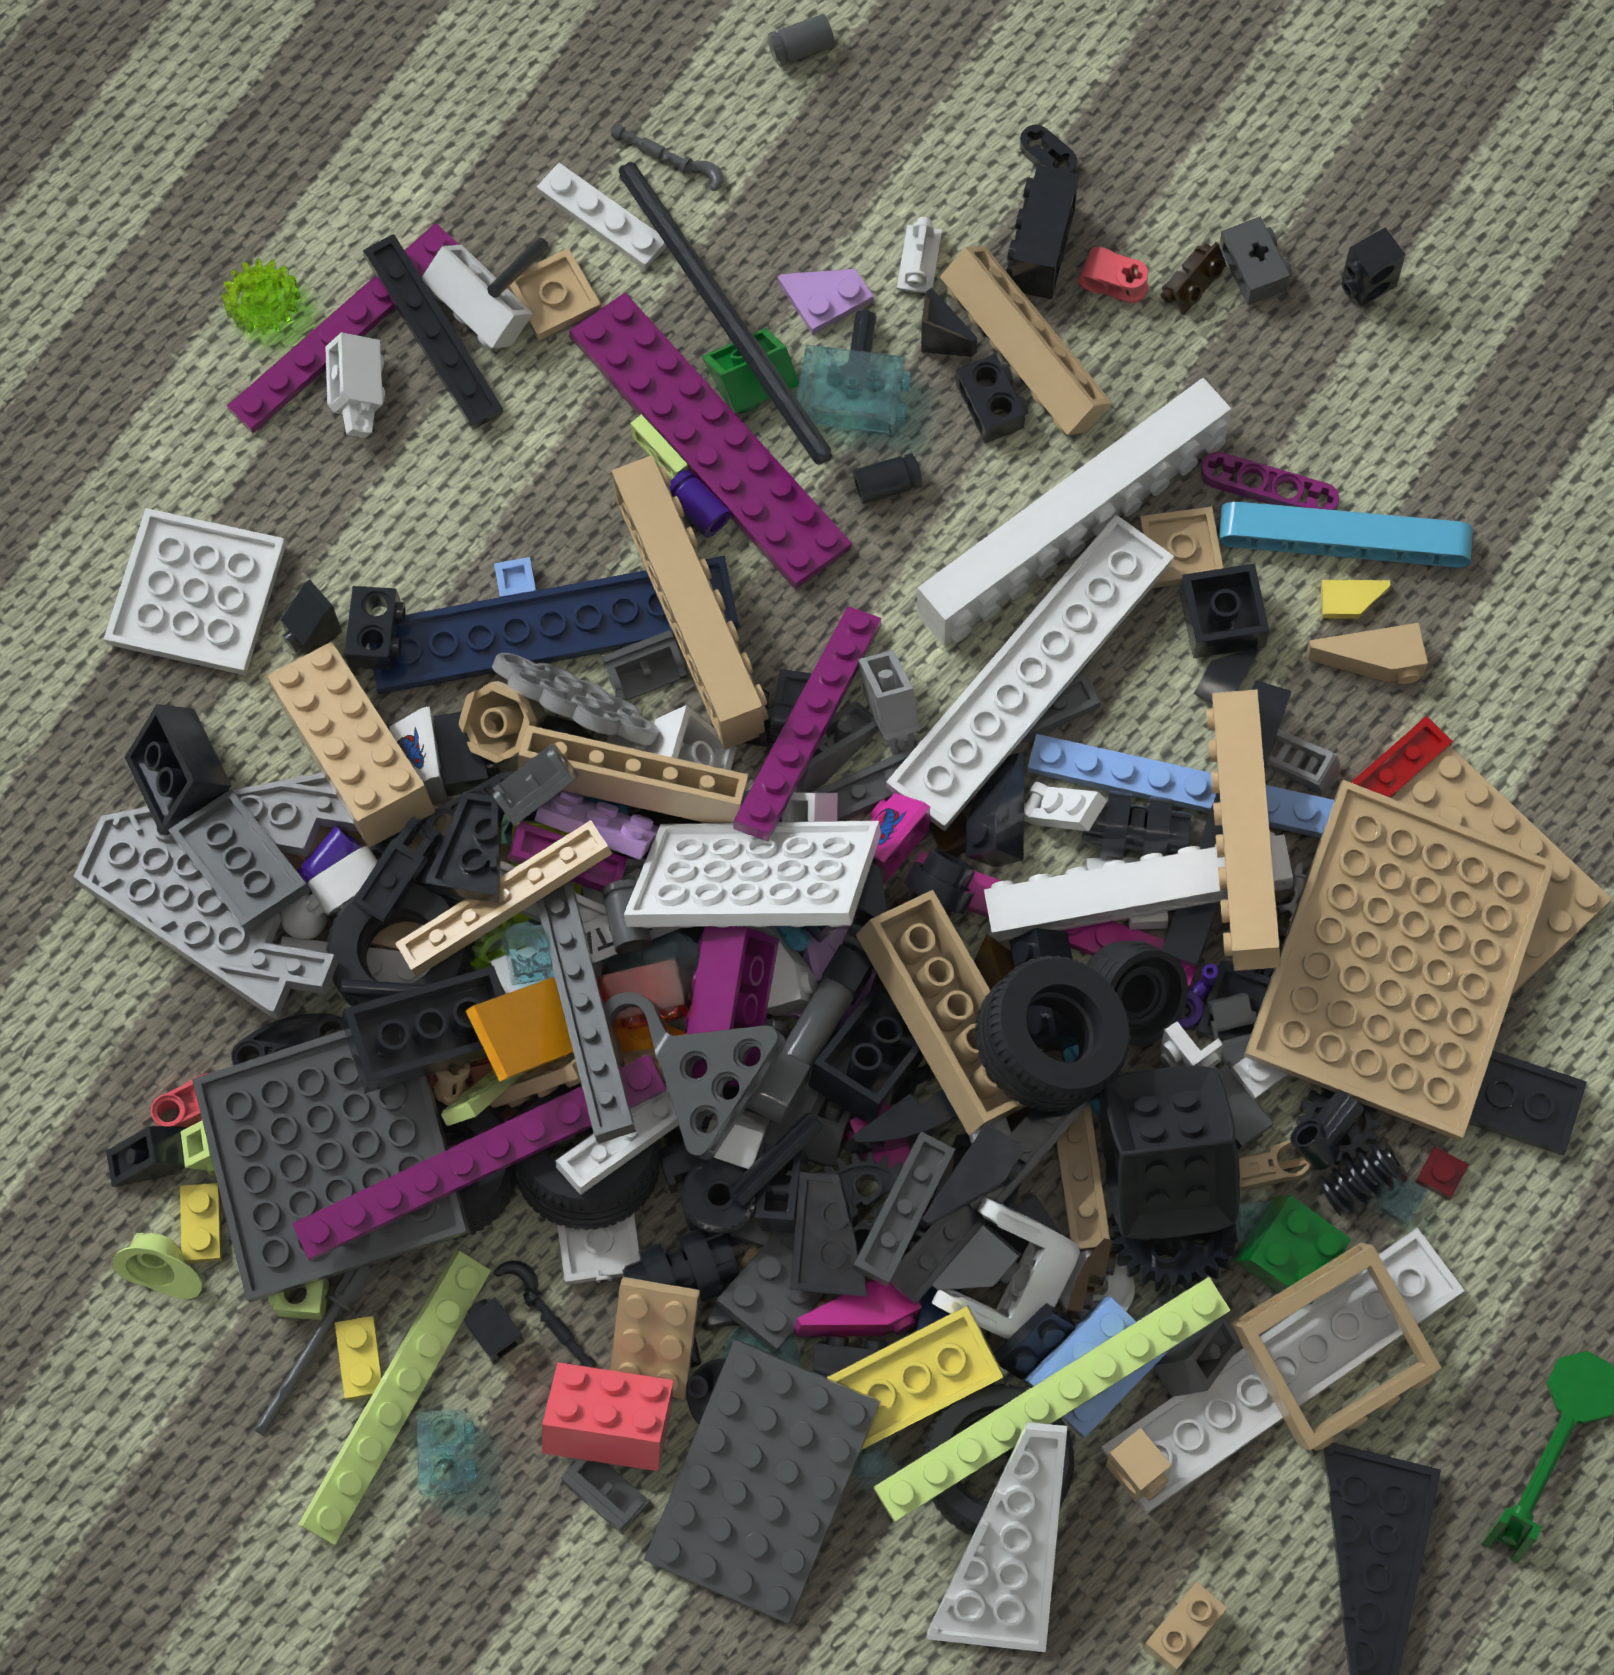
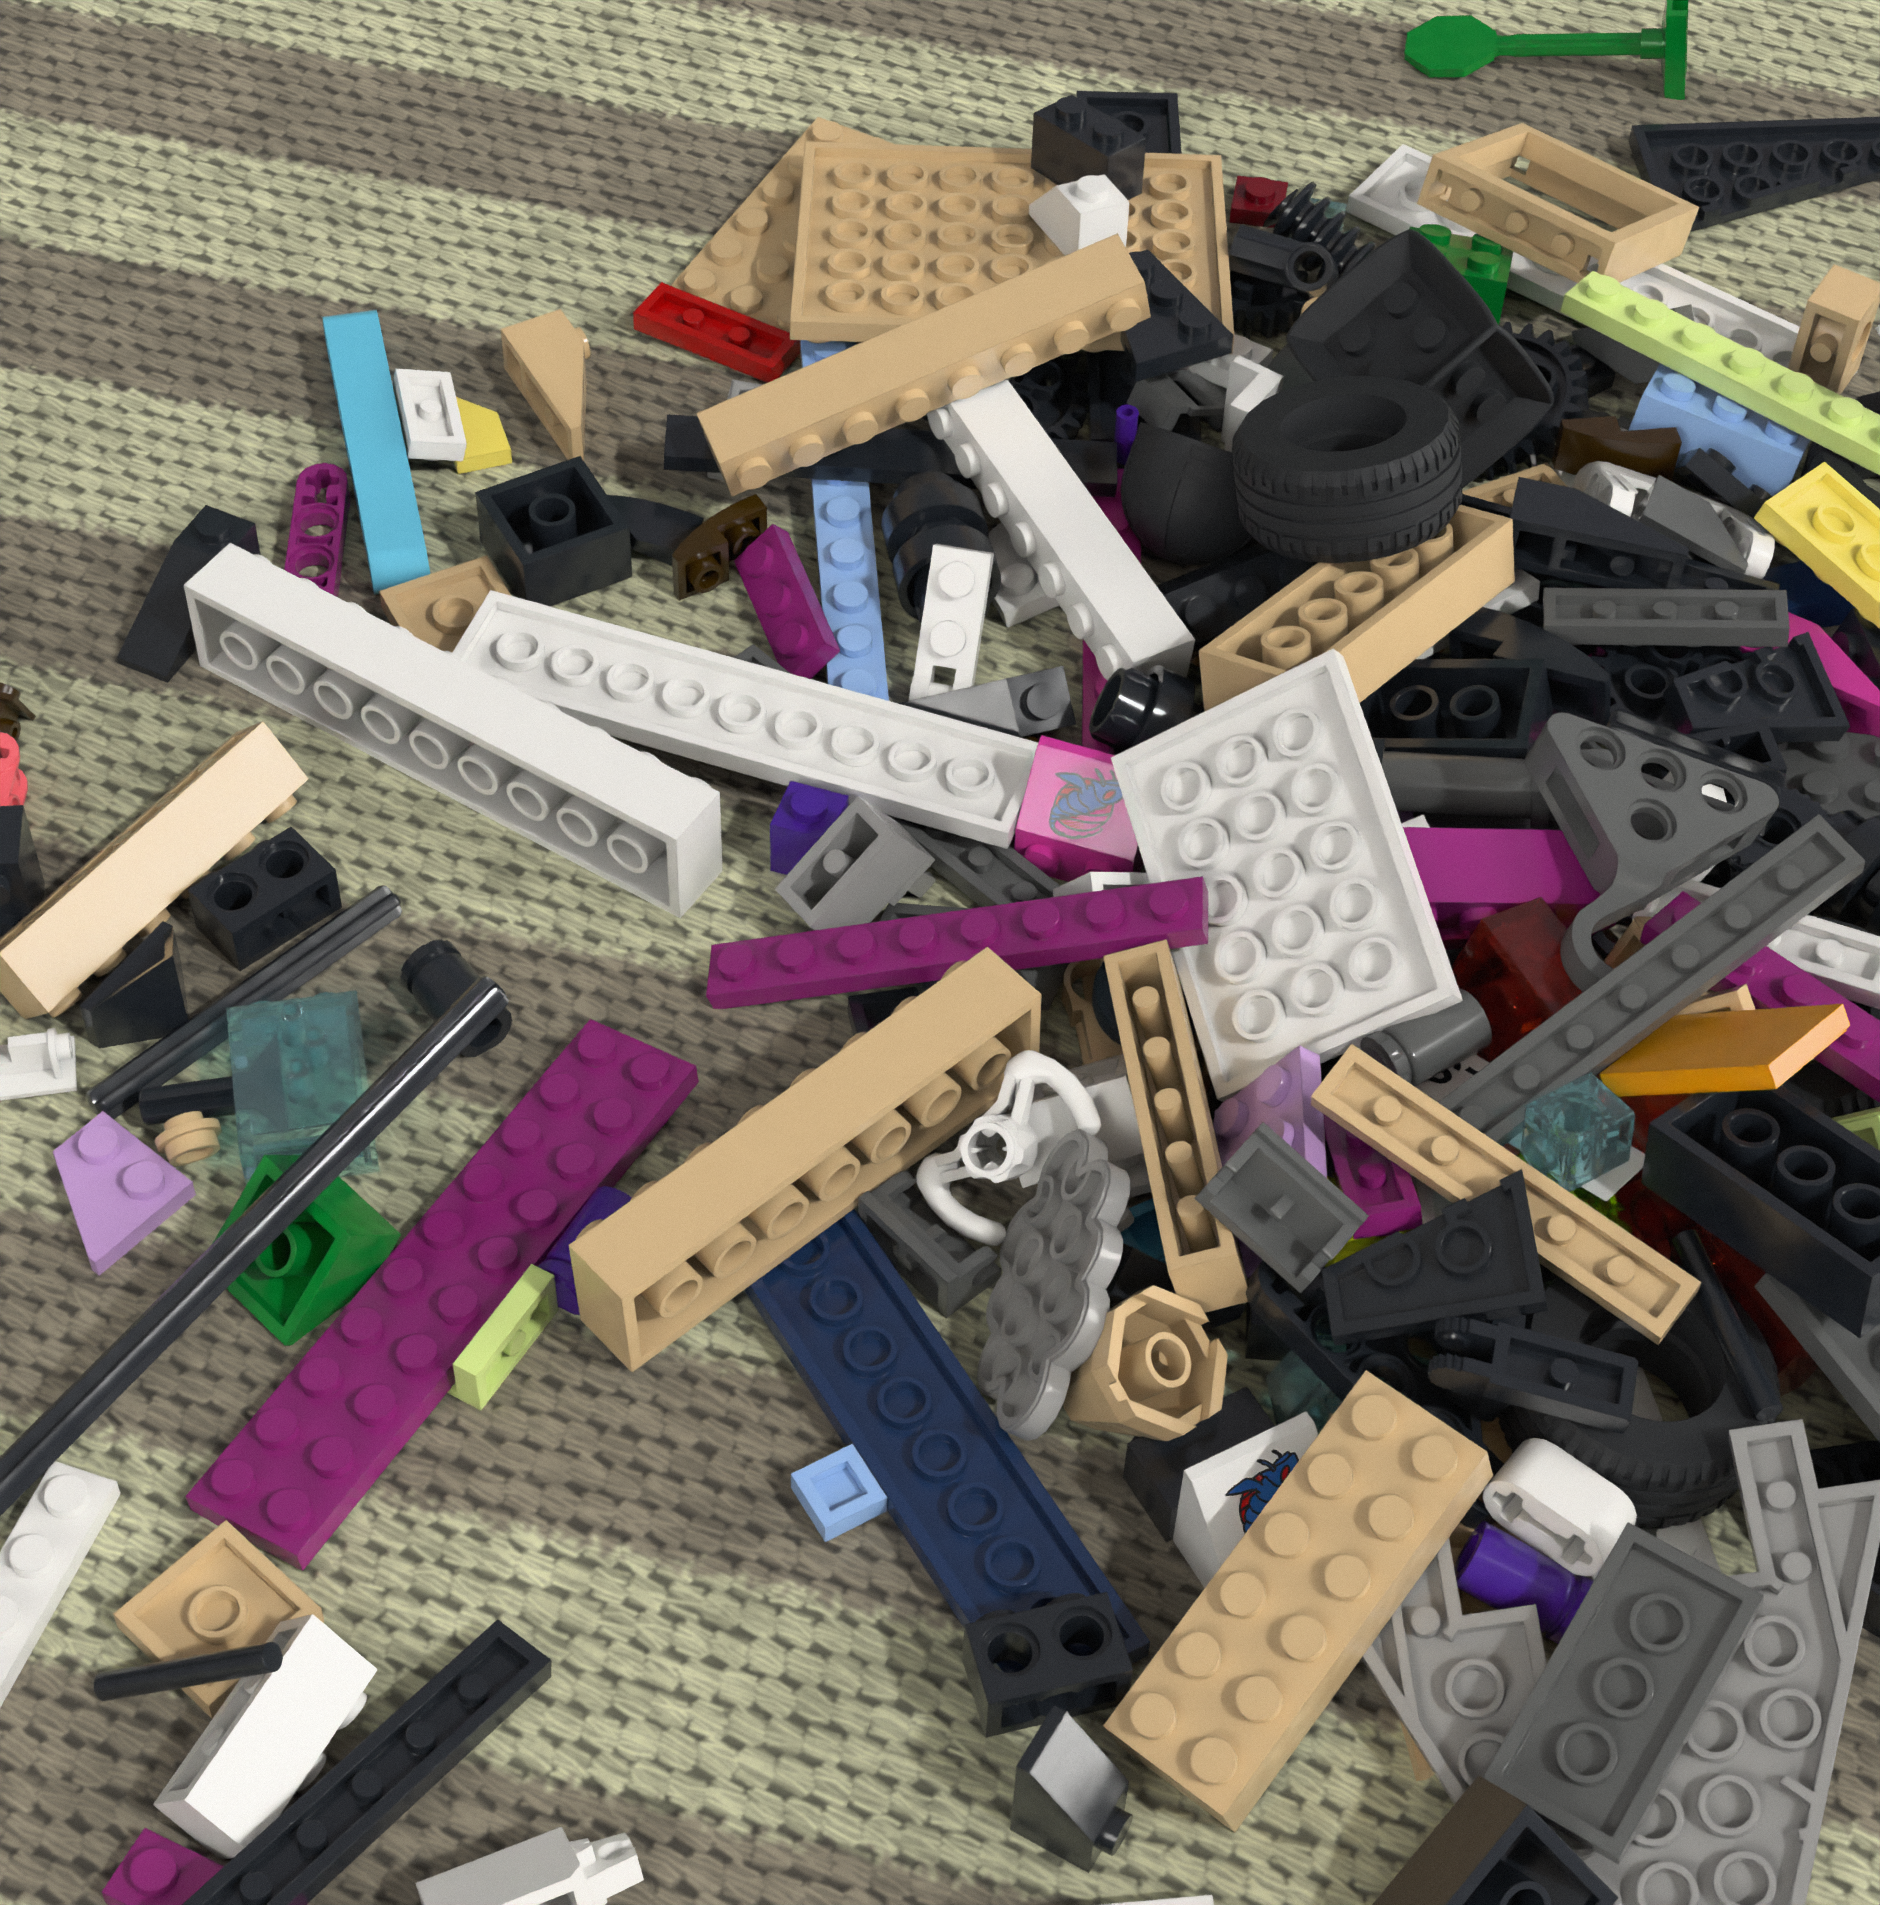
camera: 115 degrees left, 20 degrees down
(662, 697) = (979, 1149): none -> white piece
(838, 331) = (189, 1138): none -> tan plate
(927, 381) = (270, 983): none -> black axle
(939, 687) = (800, 822): none -> dark purple brick
(1131, 732) = (786, 604): none -> magenta plate
(1187, 701) = (705, 554): none -> dark brown slope
(1253, 410) = (163, 629): none -> black slope
(1273, 1006) = (1179, 326): none -> black wing
(1356, 566) = (429, 415): none -> white plate
(1390, 993) = (1082, 213): none -> white slope
(1461, 1026) = (1081, 141): none -> black brick

